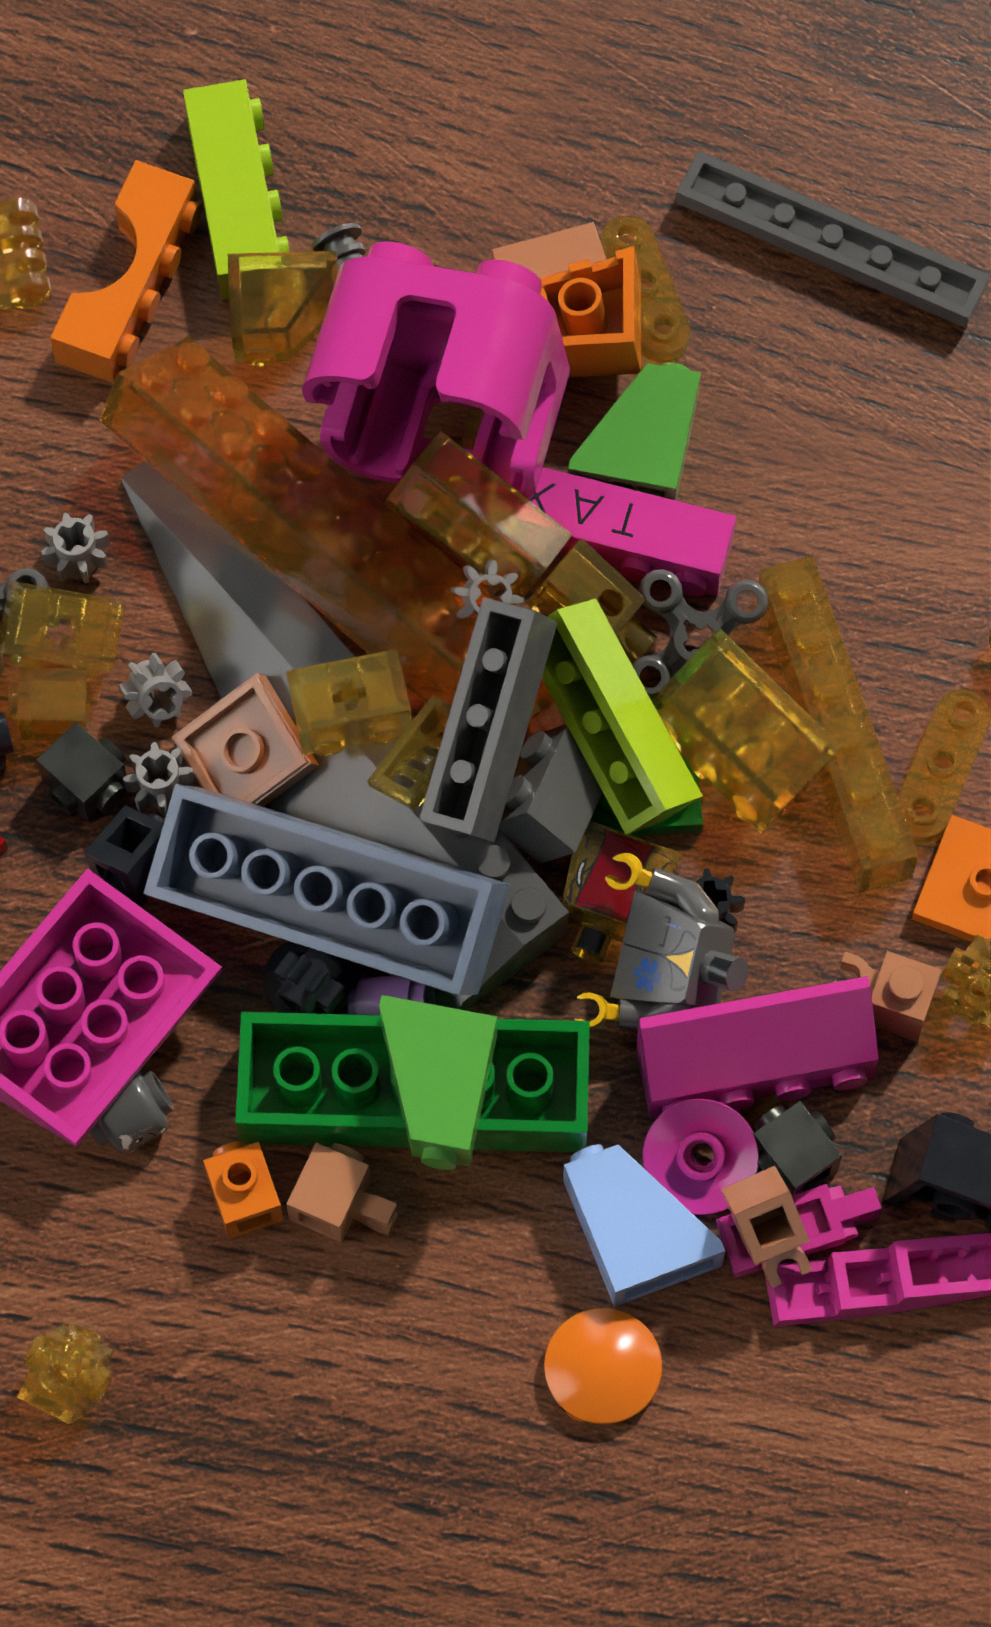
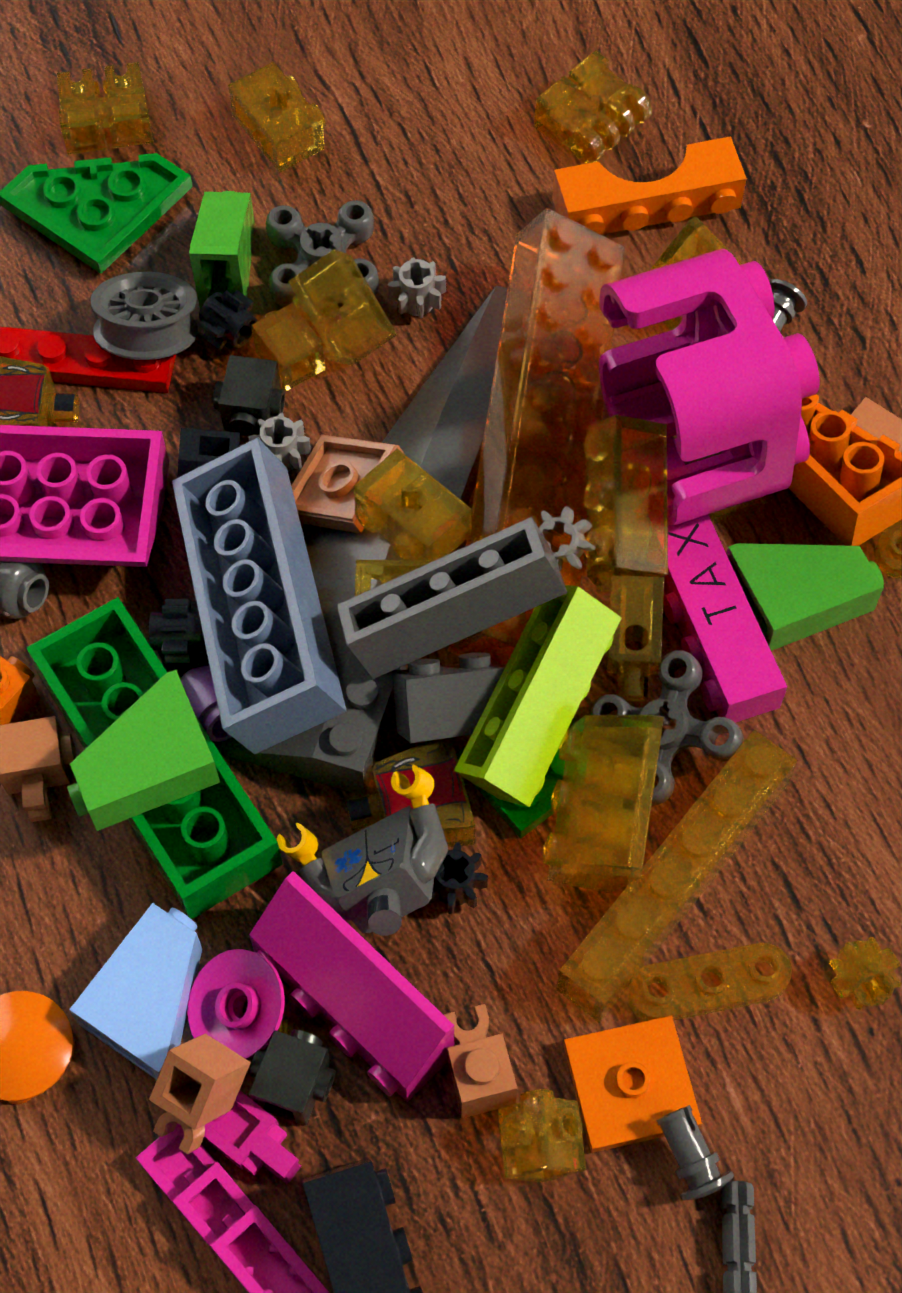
camera: 55 degrees right, 5 degrees down
(163, 702) = (345, 398): light grey gear -> none
(233, 173) = (781, 200): lime brick -> none

